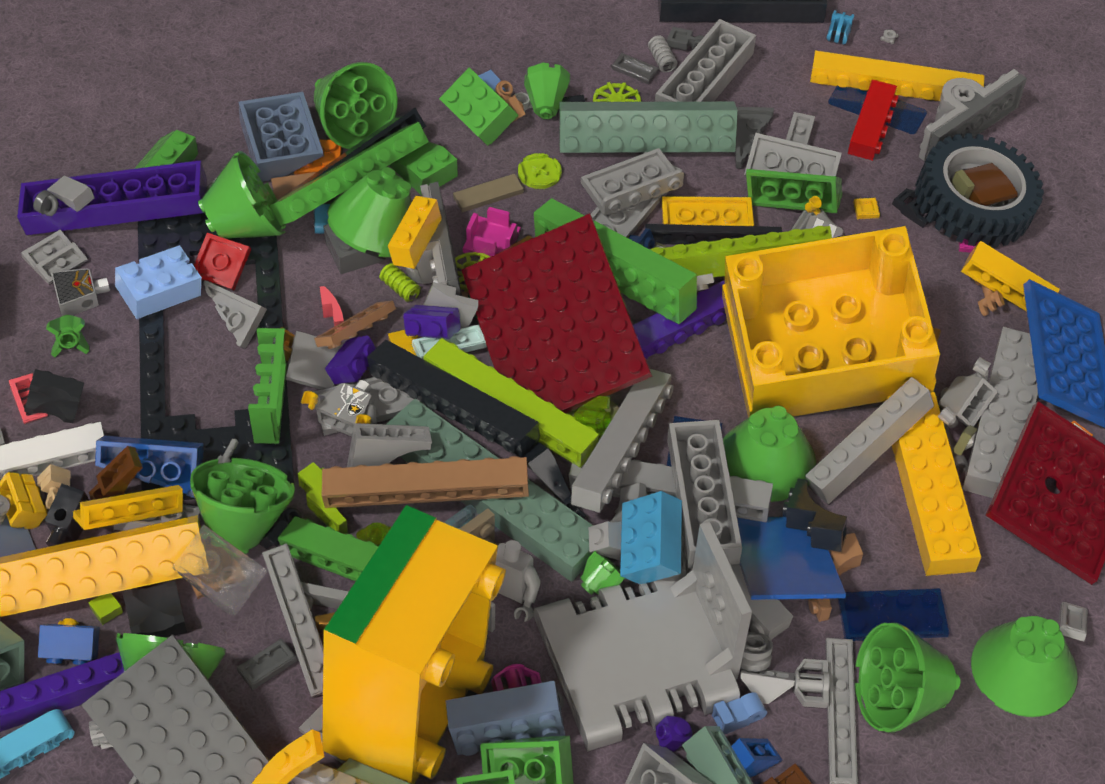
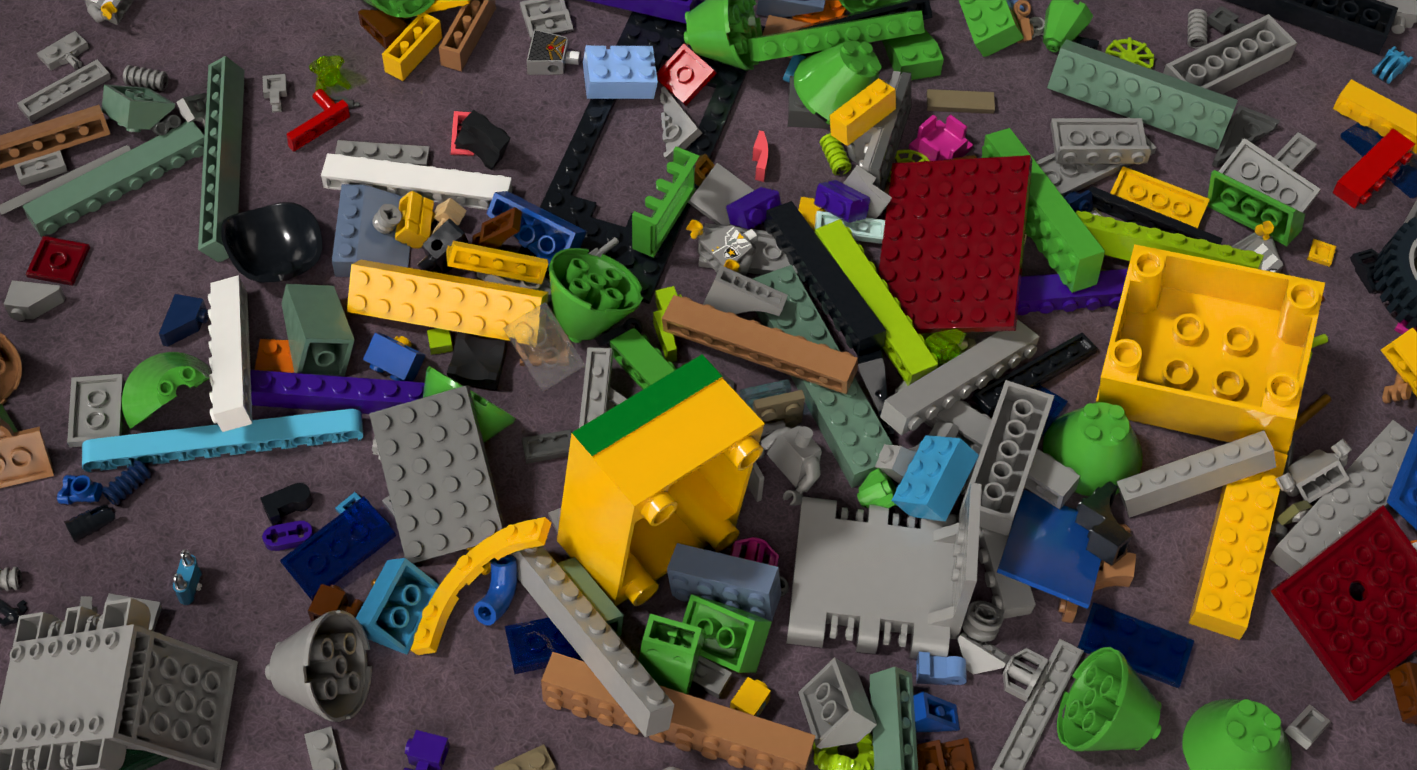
camera: 25 degrees right, 5 degrees up
(68, 334) = (523, 89): bright green brick -> none
(349, 328) = (781, 176): medium nougat plate -> none
(539, 171) = (1019, 98): lime tile -> none
(635, 68) = (1163, 33): flat silver tile -> none
(673, 732) = (869, 660): dark purple plate -> none
(682, 408) = (1038, 370): none -> black tile
(703, 281) = (1111, 261): light grey plate -> none

